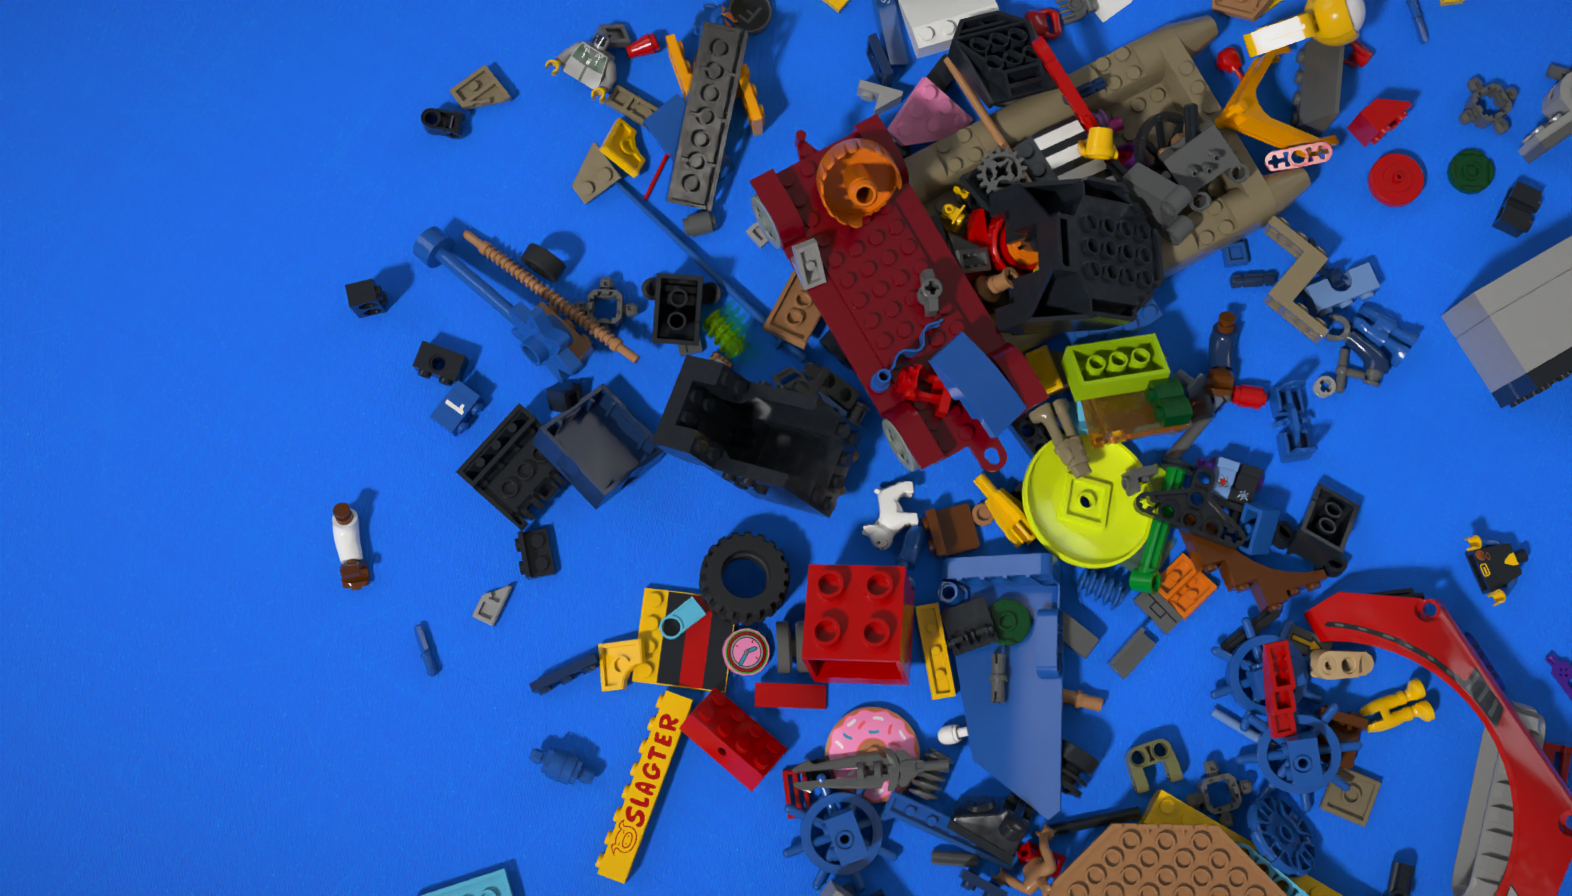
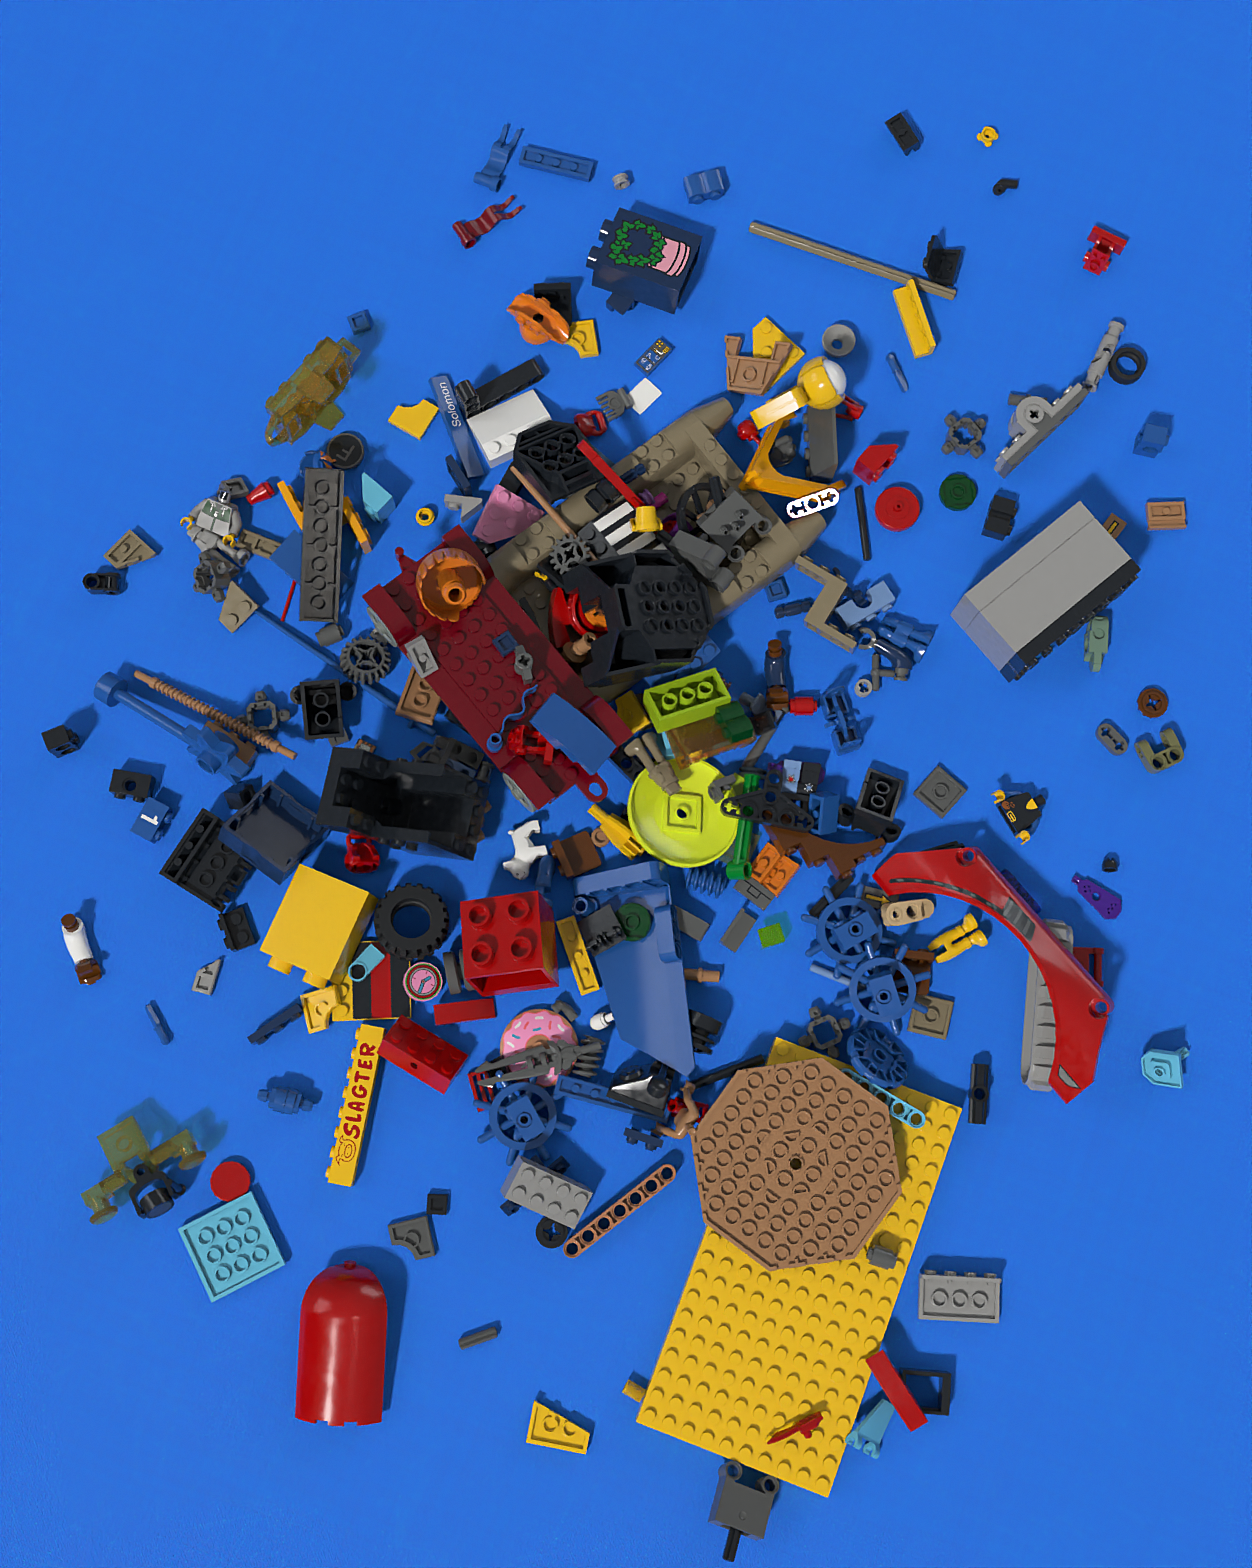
camera: 15 degrees left, 0 degrees up
(362, 787) = (123, 1144): none -> clear yellow piece
(481, 851) = (230, 1181): none -> red tile
(543, 262) = (204, 687): black tyre -> none
(574, 94) = (210, 541): none -> light grey piece
(581, 139) = (220, 580): none -> dark grey piece
(622, 148) = (255, 581): yellow tile -> none
(633, 566) = (318, 927): none -> yellow brick
(695, 490) = (361, 856): none -> red piece
(724, 334) = (364, 723): clear neon green piece -> none
(734, 249) = (365, 650): none -> dark grey gear
(780, 74) = (377, 501): none -> medium azure slope
(831, 96) = (425, 511): none -> yellow plate
(910, 264) = (505, 643): none -> dark blue tile
(912, 713) = (566, 1008): none -> dark grey arm
(952, 218) = (537, 598): yellow hinge -> none
(954, 858) = (618, 1121): dark grey axle -> none
(969, 256) = (554, 627): dark grey slope -> none
(998, 678) = (631, 969): dark grey pin -> none
(1047, 109) = (601, 496): none -> black wheel
(1146, 750) = (780, 1013): olive piece -> none
(1171, 666) = (771, 936): none -> clear neon green panel
(1270, 89) = (782, 451): none -> dark grey piece
(1278, 689) = (856, 940): red slope -> none
(1350, 190) = (862, 524): none -> black piece
(1399, 526) = (939, 792): none -> dark grey tile

